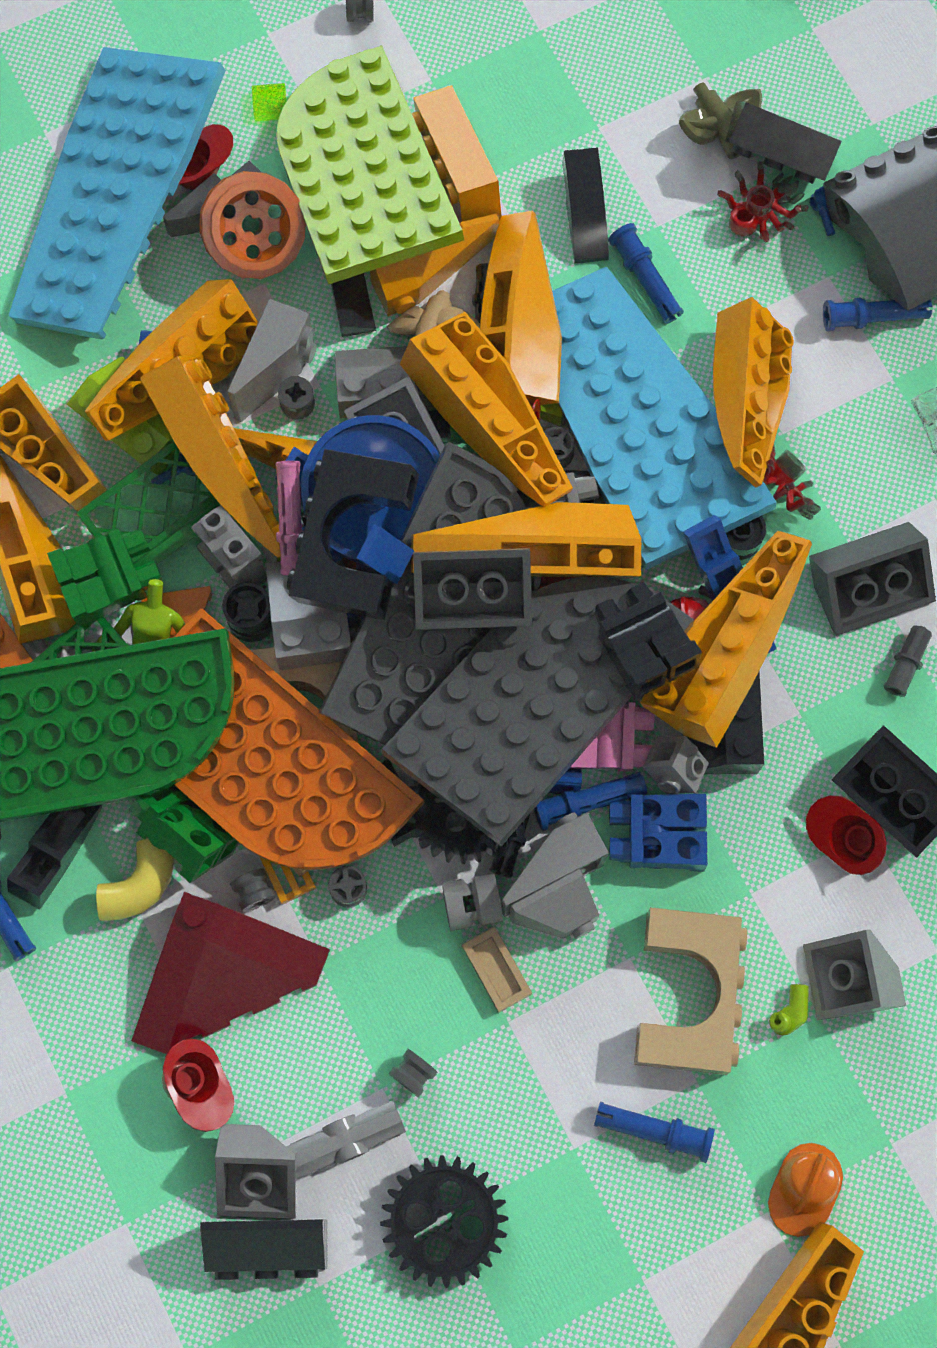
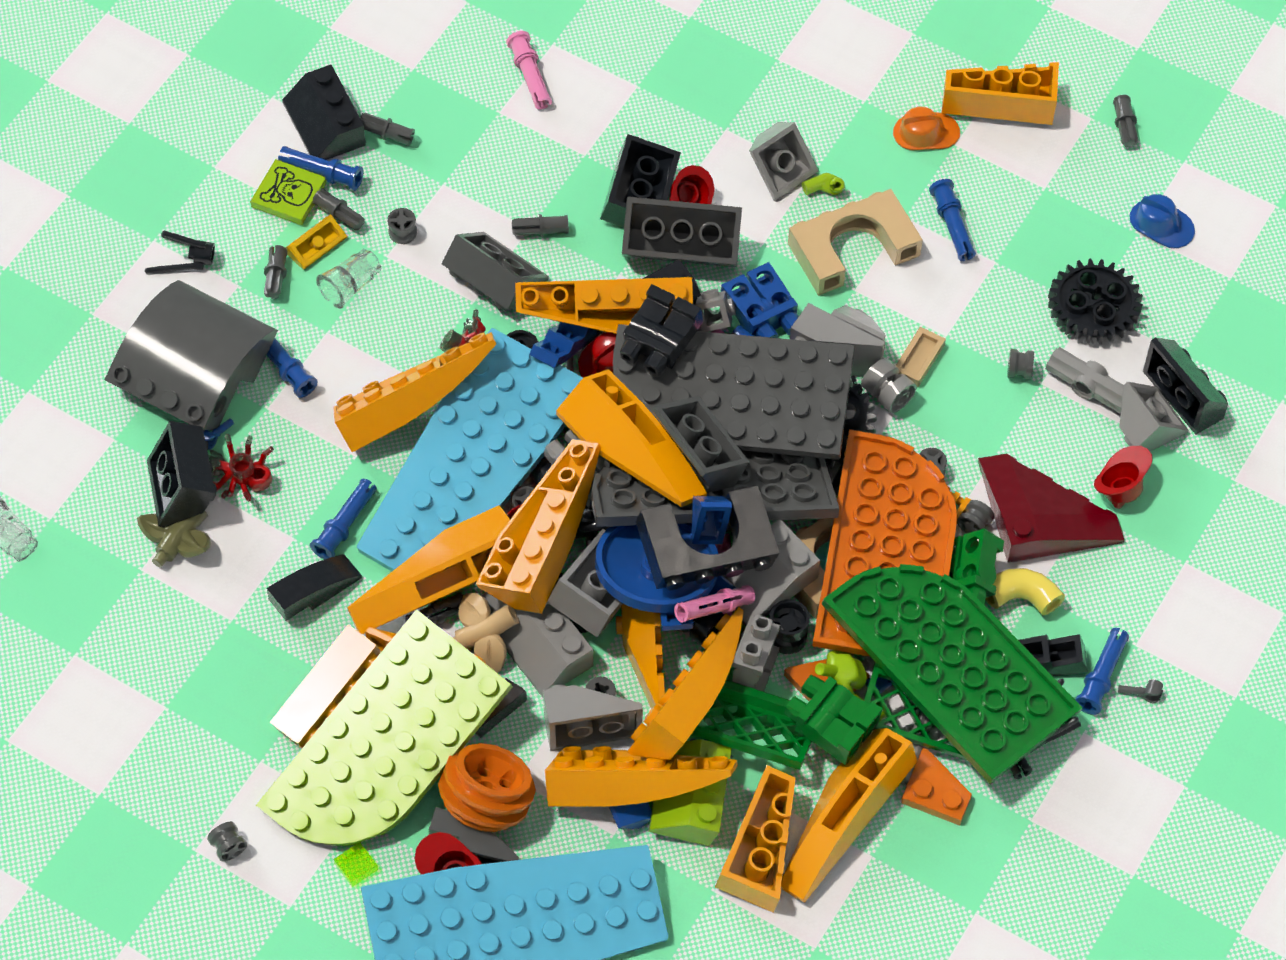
camera: 120 degrees left, 15 degrees down
(794, 786) = (682, 231): none -> dark grey slope

